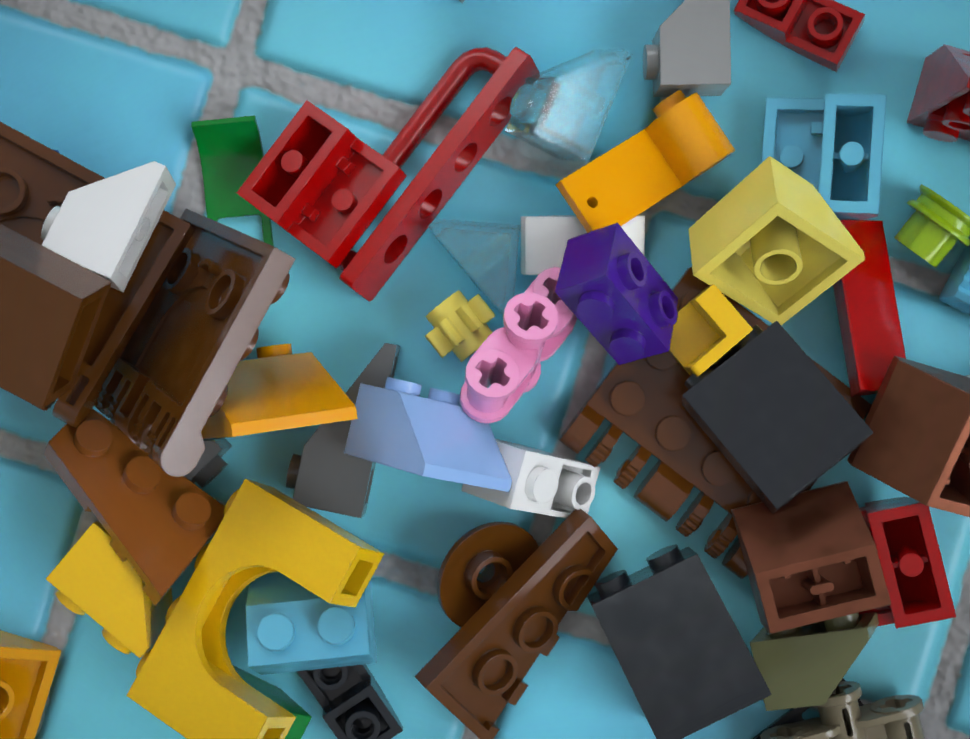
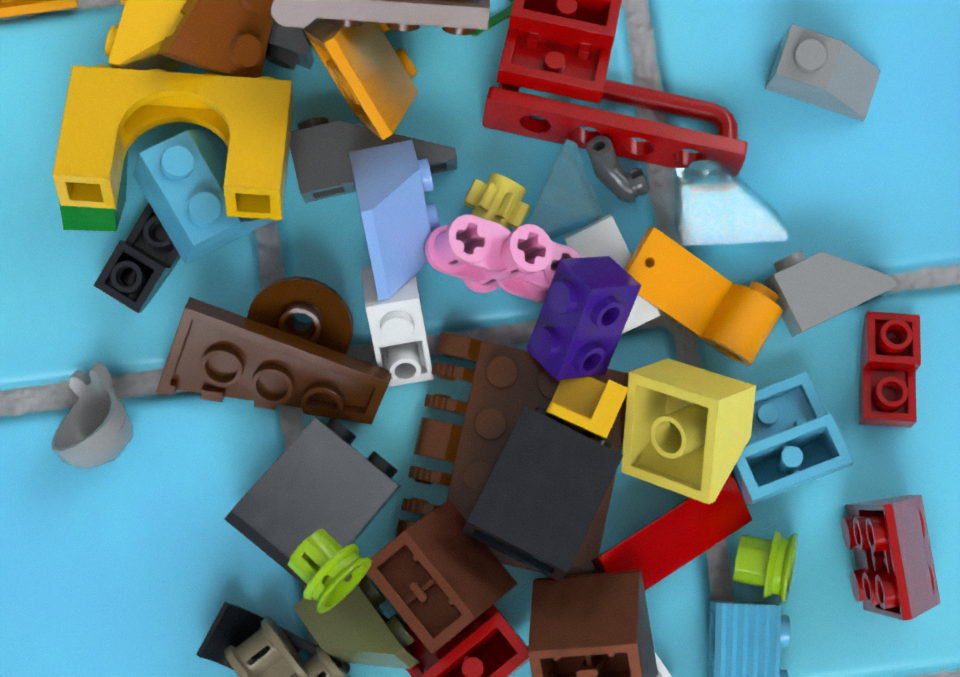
camera: 60 degrees right, 5 degrees down
(478, 197) = (610, 173): none -> dark grey arm
(762, 671) = (324, 566): none -> lime piece

